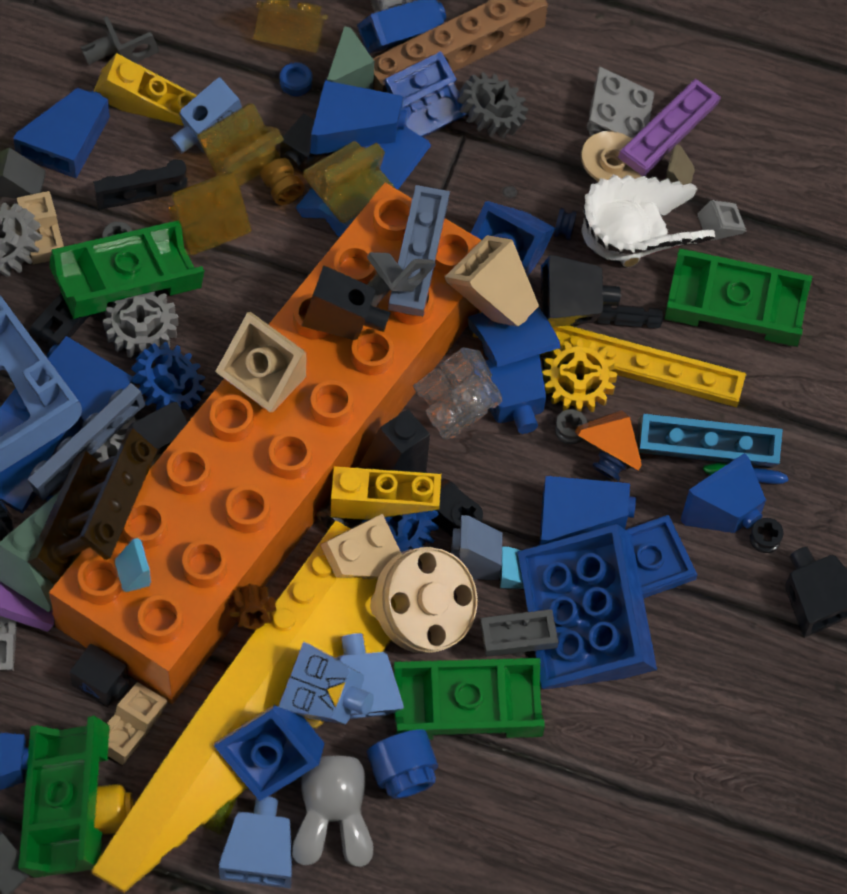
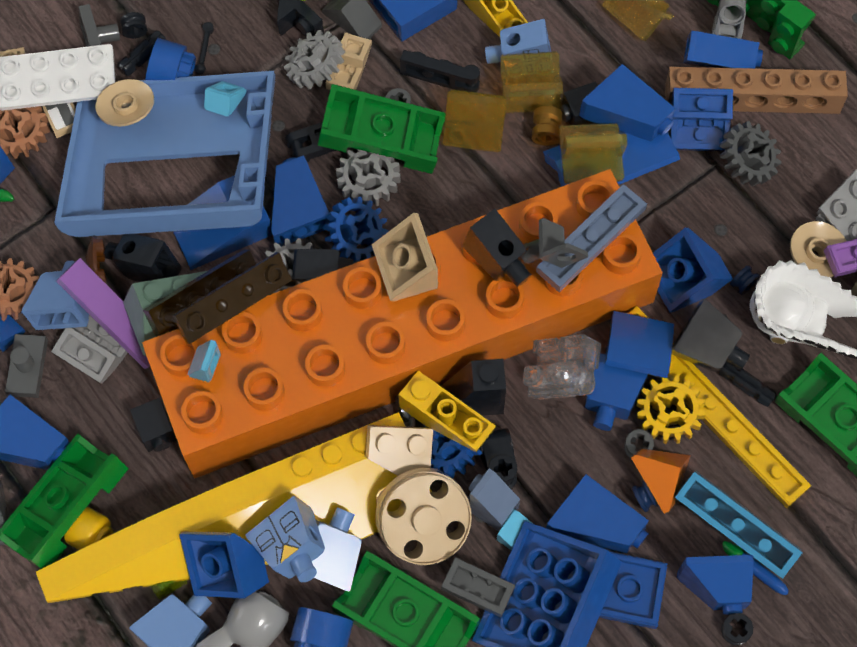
camera: 40 degrees right, 5 degrees up
(94, 433) = (270, 240): sand blue plate -> none
(133, 721) = (154, 474): tan slope -> none
(252, 606) = (282, 443): reddish brown gear -> none
(295, 79) = (613, 52): blue tile -> none
(352, 62) = (654, 63): sand green slope -> none
(495, 281) = (641, 295): tan slope -> none

